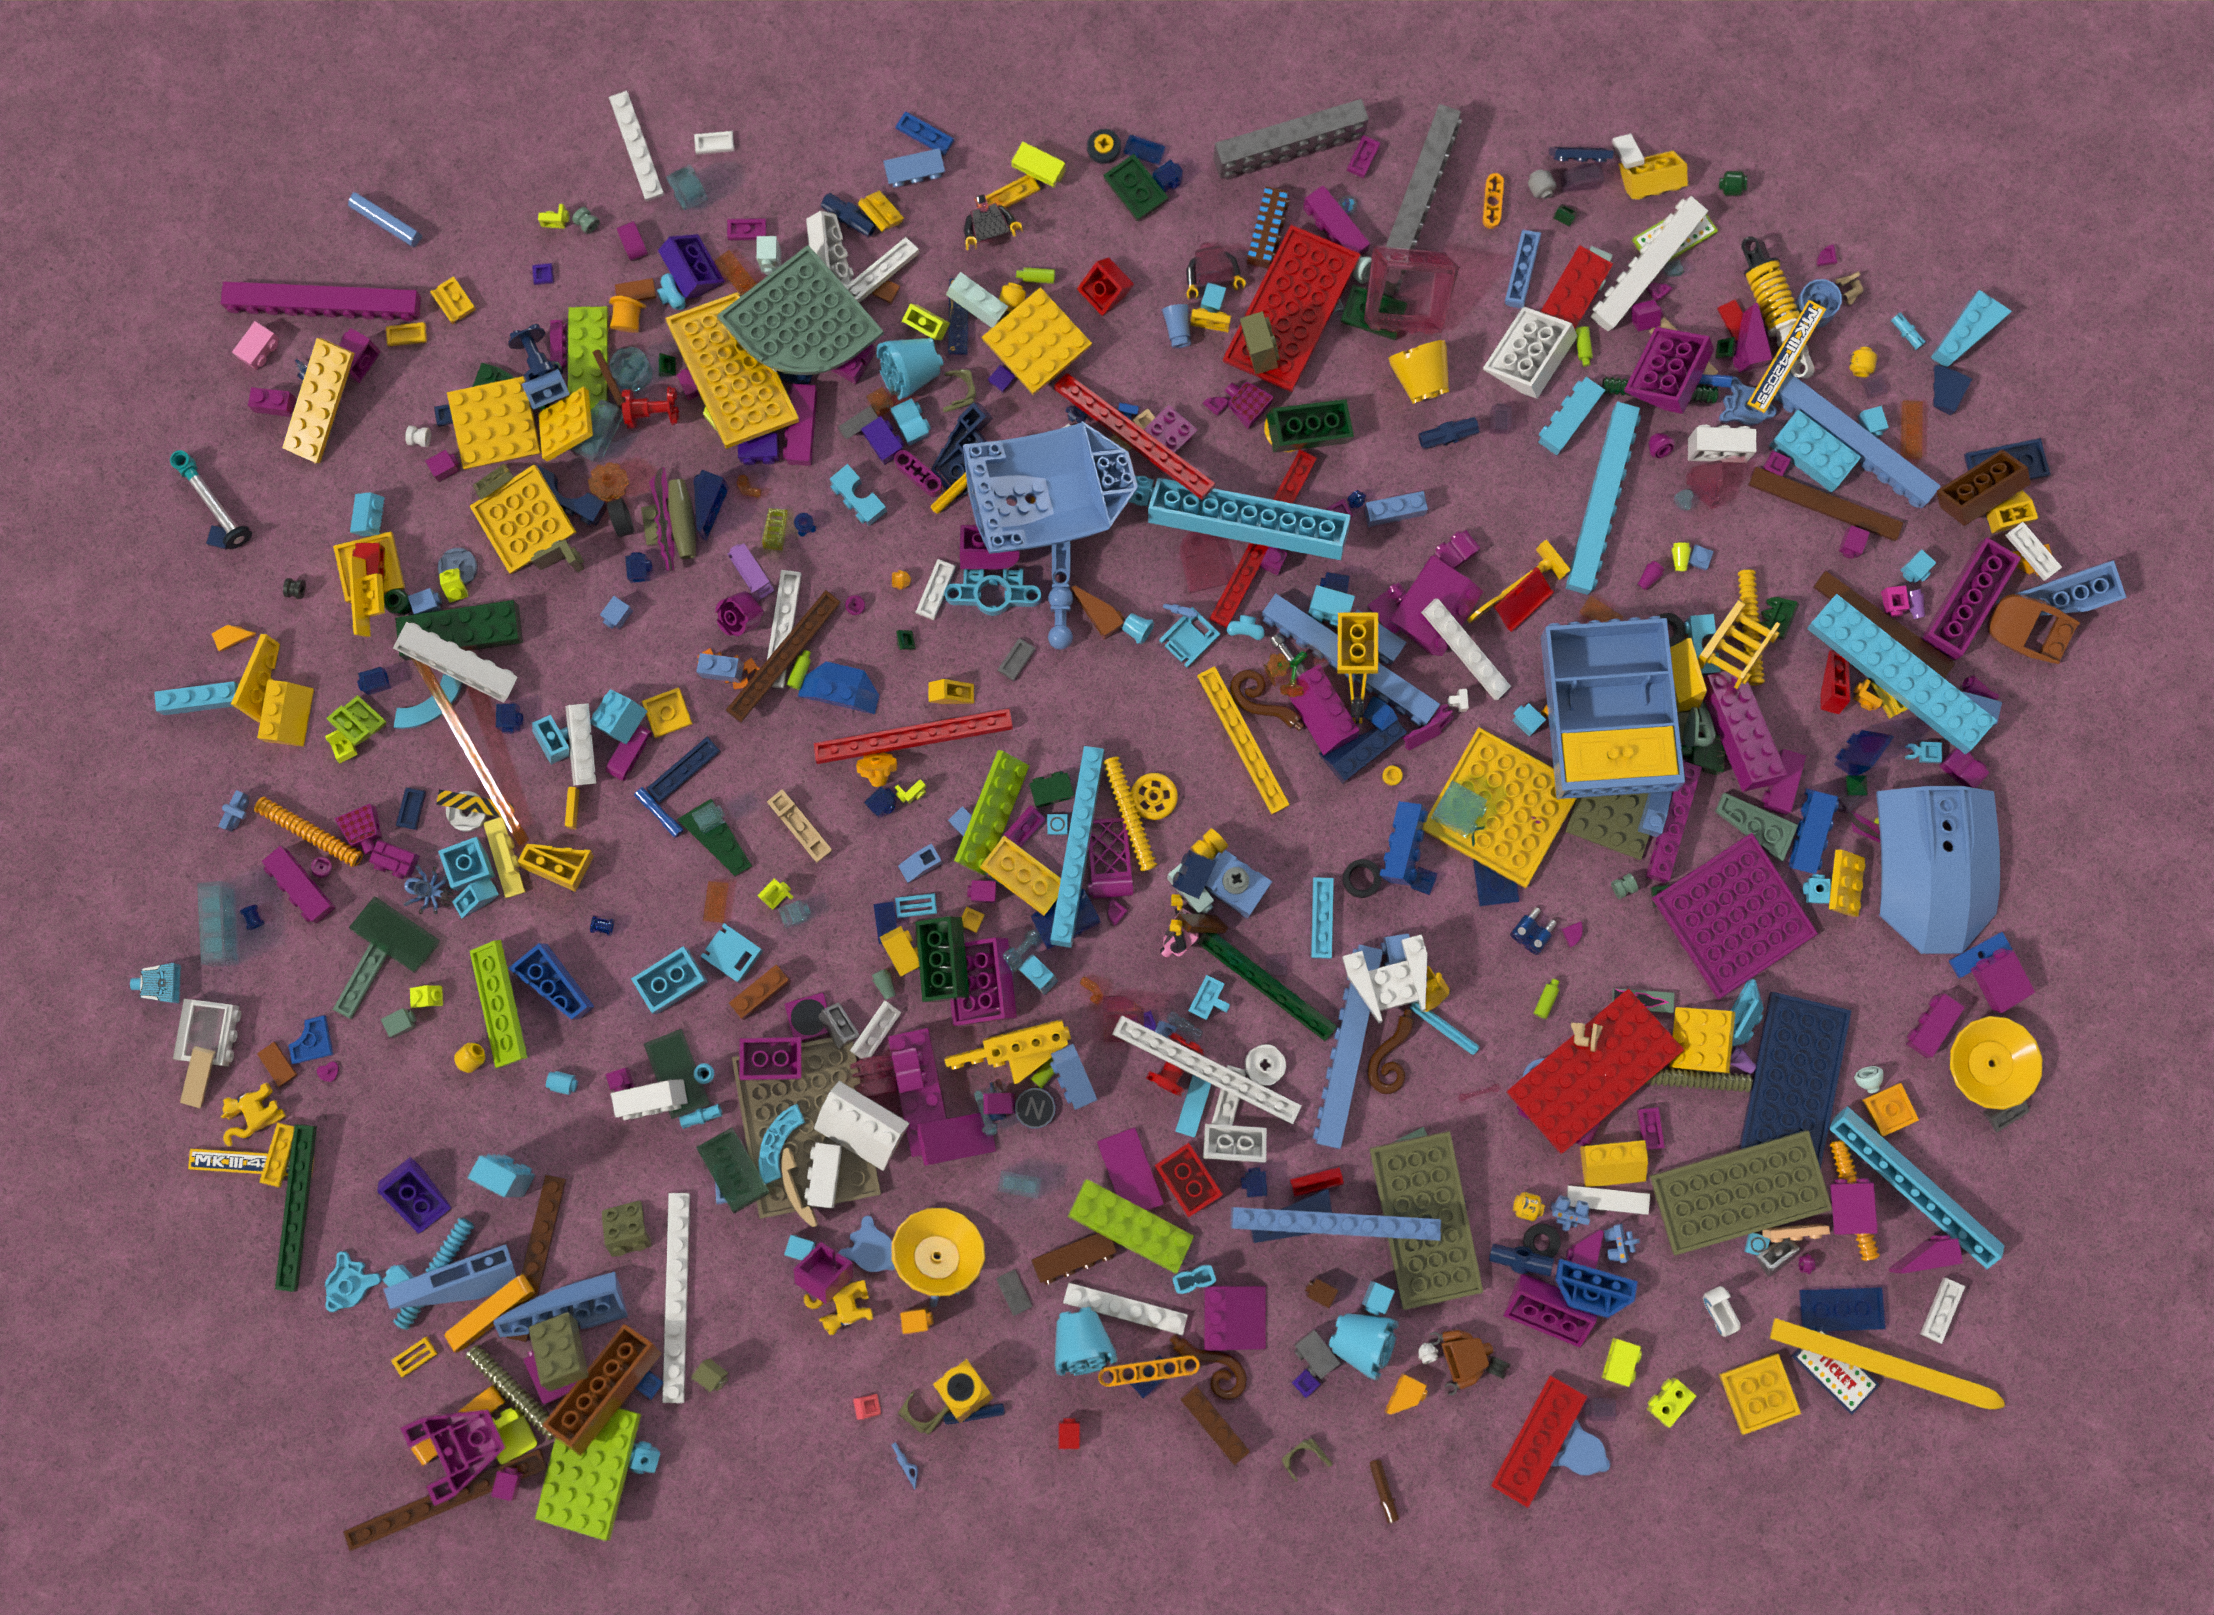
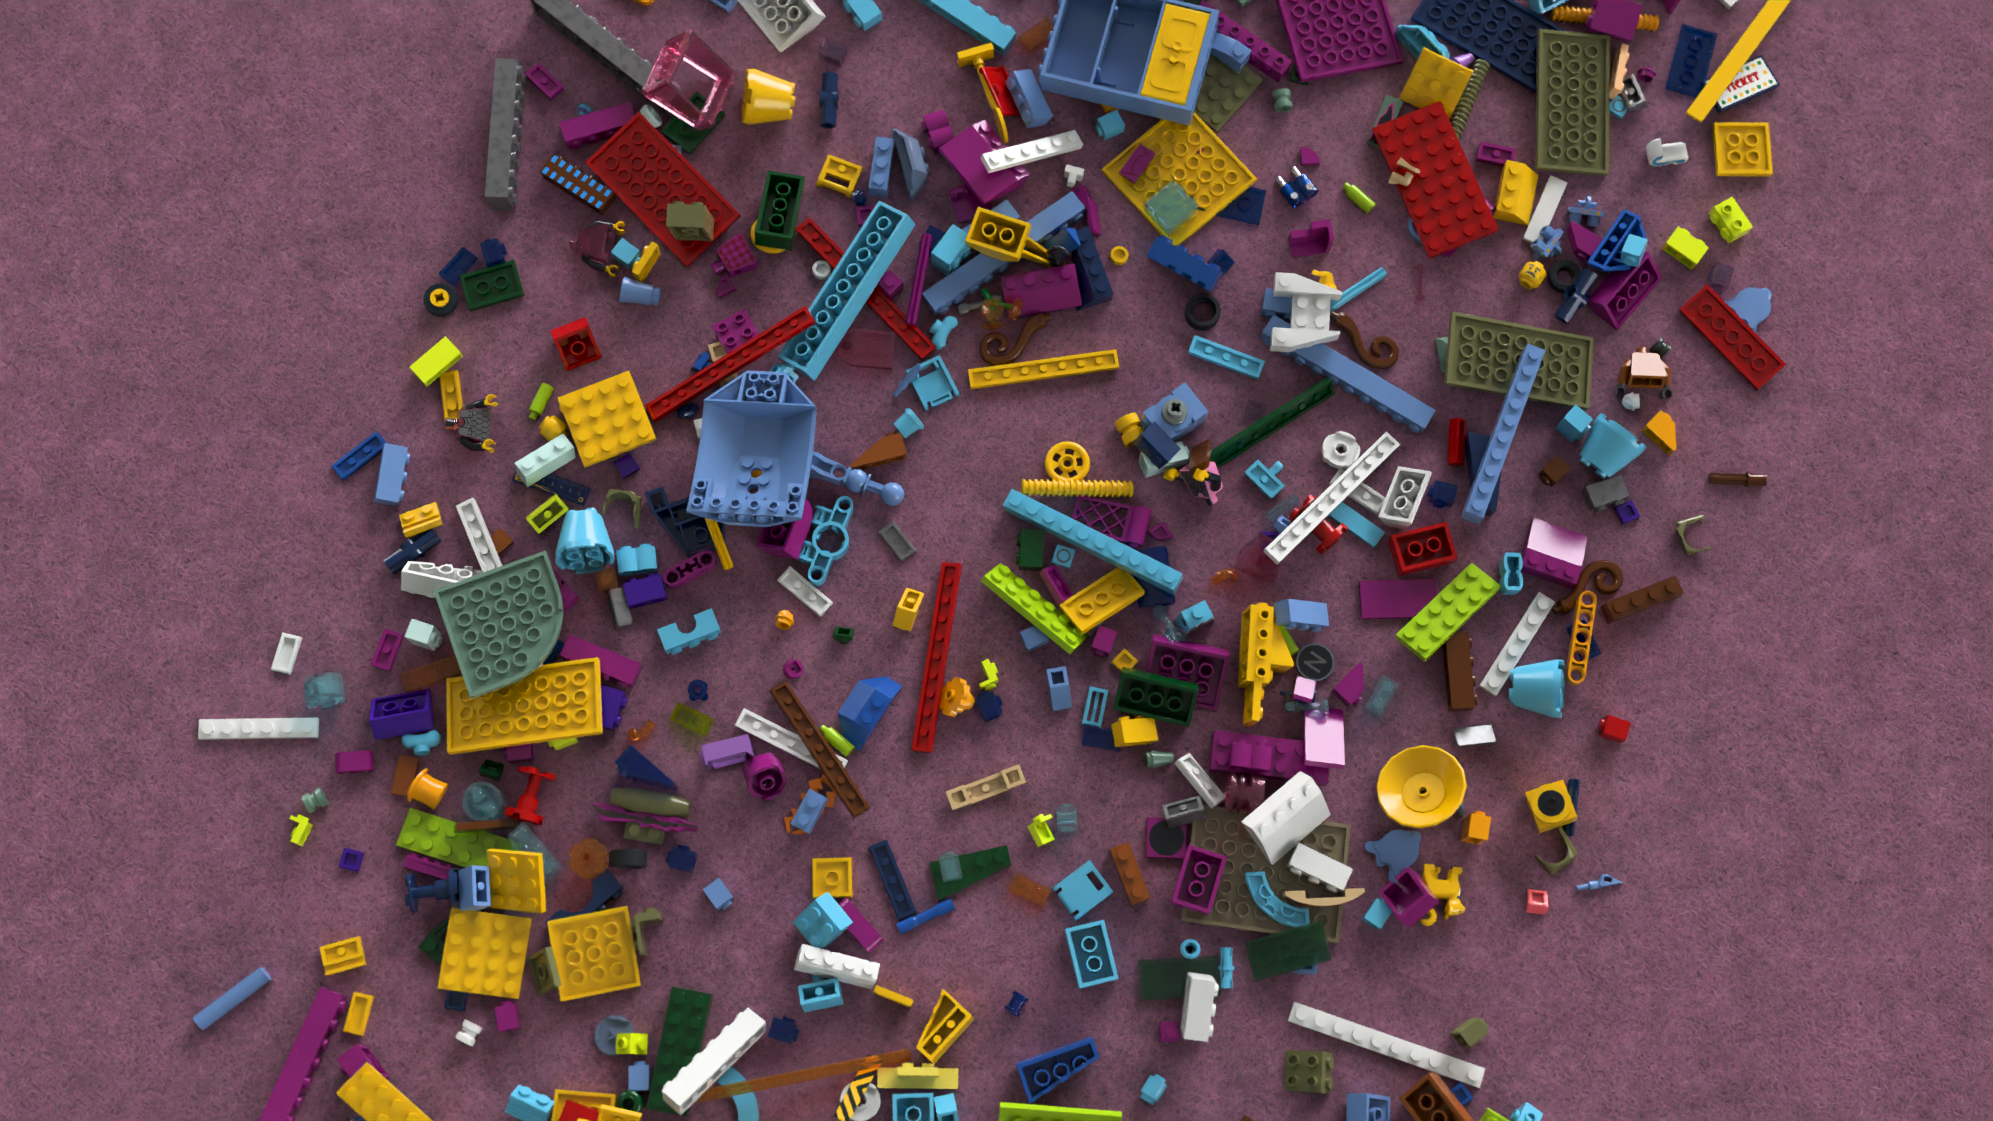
camera: 75 degrees left, 5 degrees down
(1020, 1151) = (1351, 686): none -> magenta slope
(1267, 489) = (821, 270): none -> white tile
(1288, 584) = (919, 277): none -> magenta axle
(1378, 472) = (840, 170): none -> yellow plate
(1411, 537) = (911, 162): none -> sand blue wedge
(1479, 963) = (1312, 241): none -> magenta panel
(1496, 760) = (1137, 163): none -> magenta tile
(1524, 628) = (1029, 98): none -> medium blue brick
(1588, 1303) = (1633, 250): none -> medium azure brick

